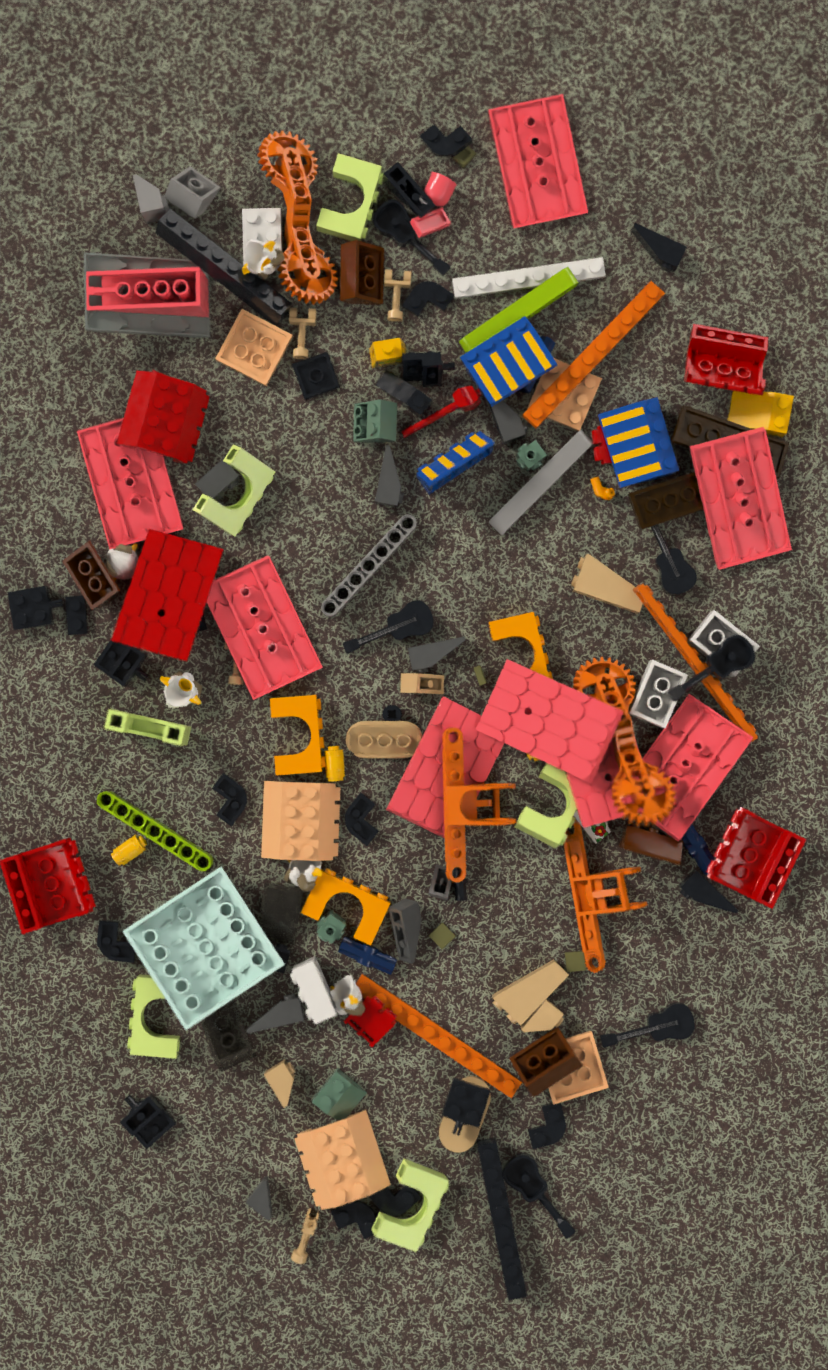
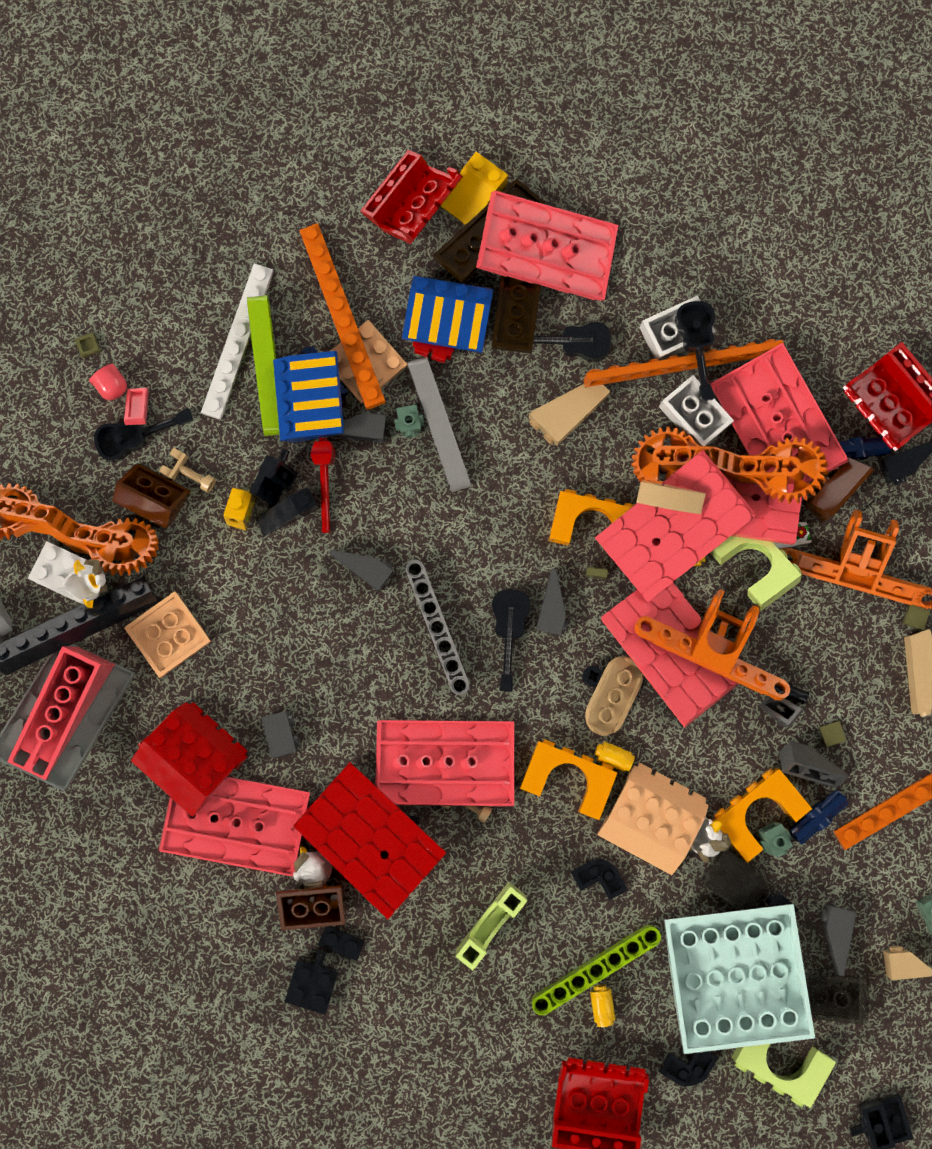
camera: 65 degrees left, 5 degrees down
(121, 662) = (412, 920): black plate -> none
(181, 690) = (468, 873): white hair -> none
(256, 478) = (297, 695): yellowish green arch -> none
(300, 352) = (195, 591): tan bar -> none
(313, 990) = (831, 887): white brick -> none
(316, 376) = (226, 588): black tile -> none
(347, 997) = (853, 857): white hair -> none
(353, 225) = (60, 445): yellowish green arch -> none
(355, 819) = (680, 763): black plate -> none
(373, 1021) = (885, 843): red plate -> none
(375, 421) = (300, 552): sand green slope -> none
(407, 190) = (94, 412): black slope -> none
(422, 683) = (577, 632): tan slope -> none
(427, 292) = (201, 443): black plate -> none
(446, 146) = (68, 361): black plate -> none
(454, 462) = (378, 494): blue slope -> none
(540, 178) = (148, 282): coral piece -> none
(568, 703) = (670, 497): none -> tan slope
(600, 491) = (474, 373): light orange arm -> none
(662, 249) = (273, 206): black slope -> none

